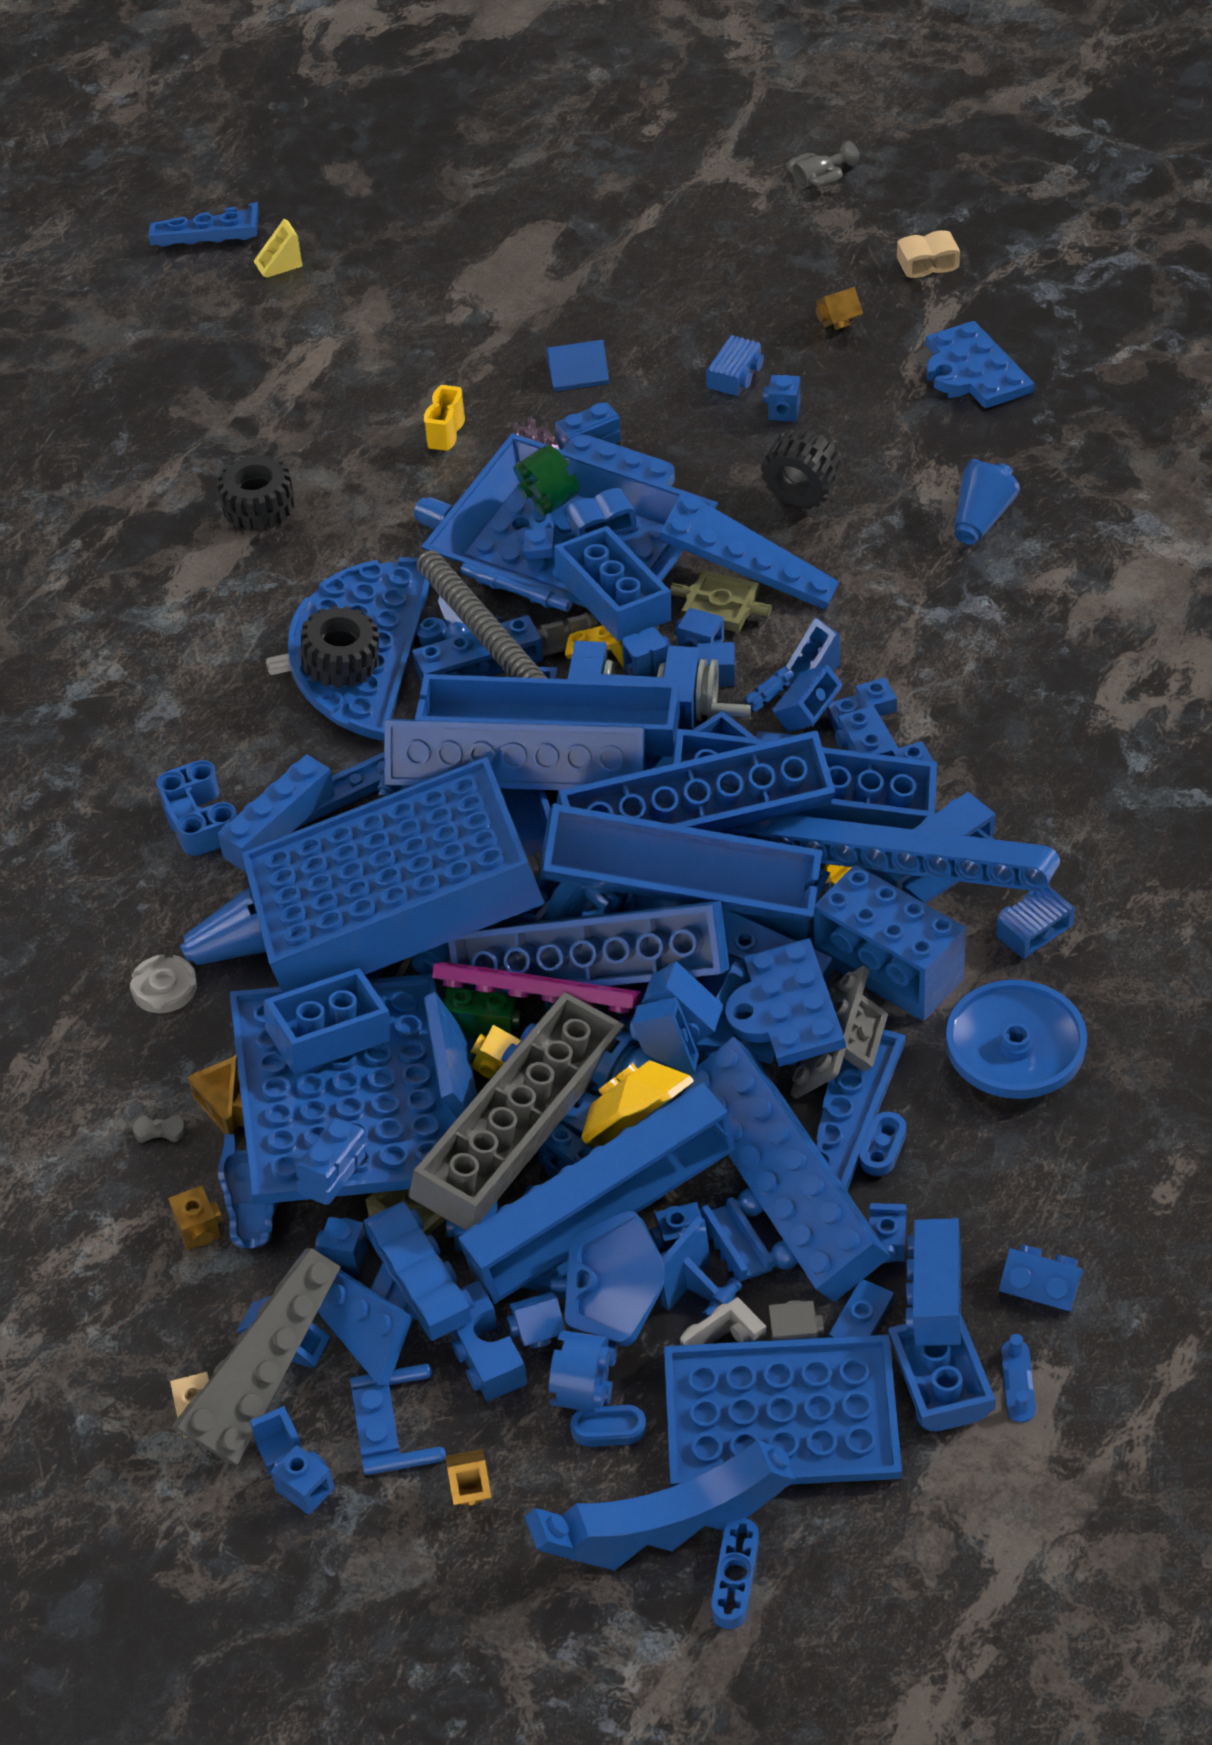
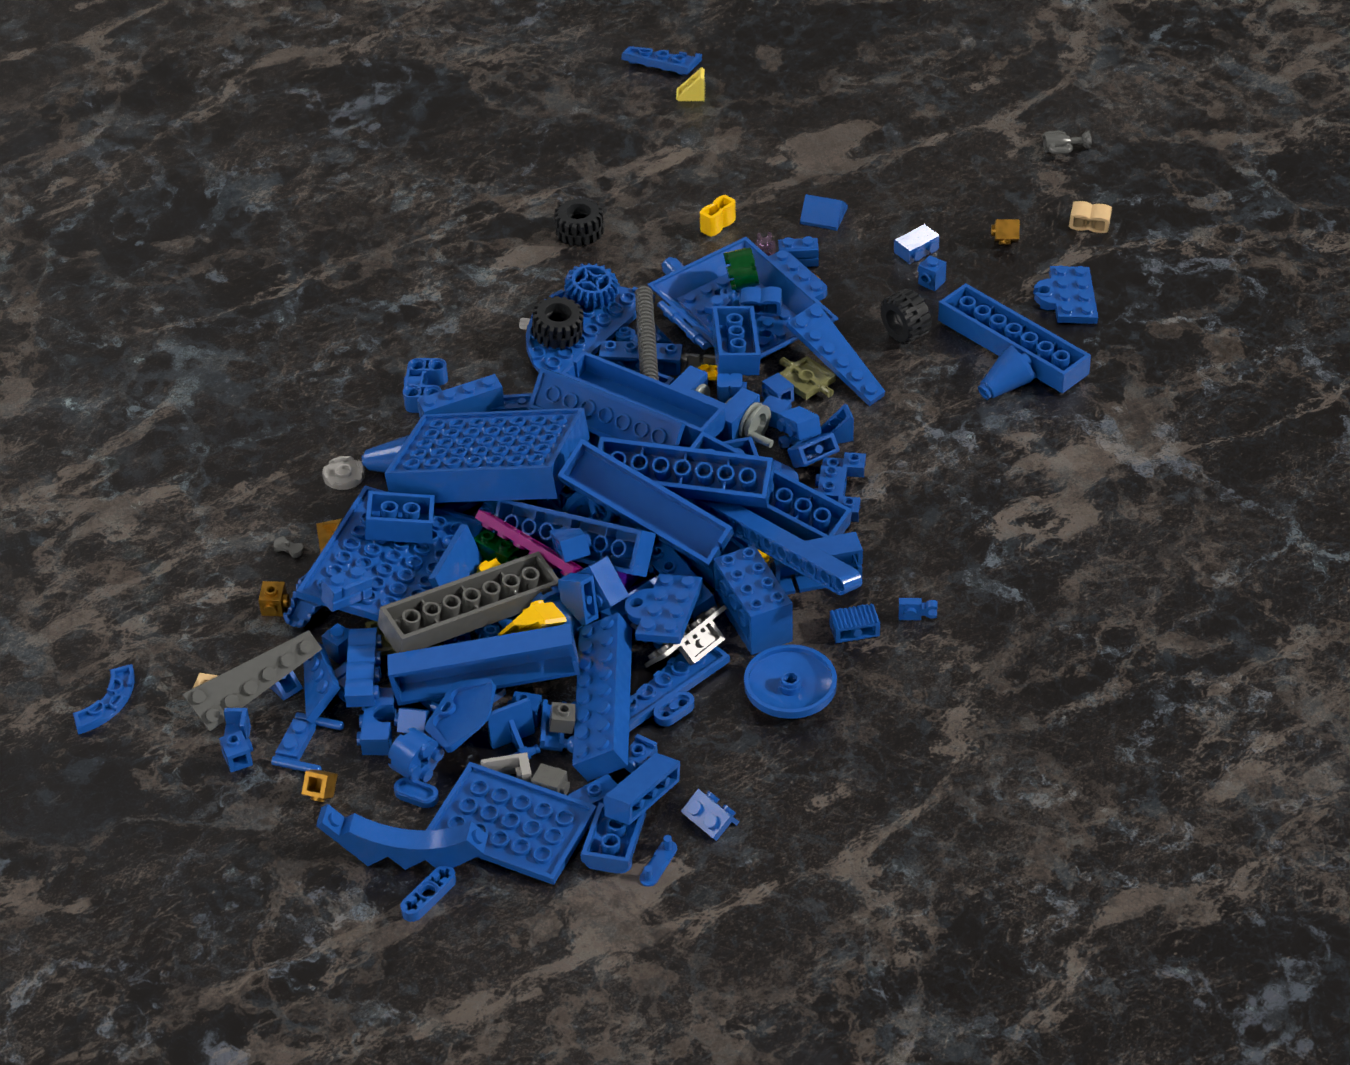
camera: 25 degrees right, 5 degrees down
(50, 1487) = (117, 695): none -> blue tile
(347, 570) = (591, 285): none -> blue gear
(607, 963) = (570, 543): none -> blue slope
(752, 1224) = (562, 717): none -> dark grey plate
(768, 668) = (799, 423): none -> blue brick
(944, 443) = (998, 327): none -> blue brick
(1095, 869) = (914, 608): none -> blue plate

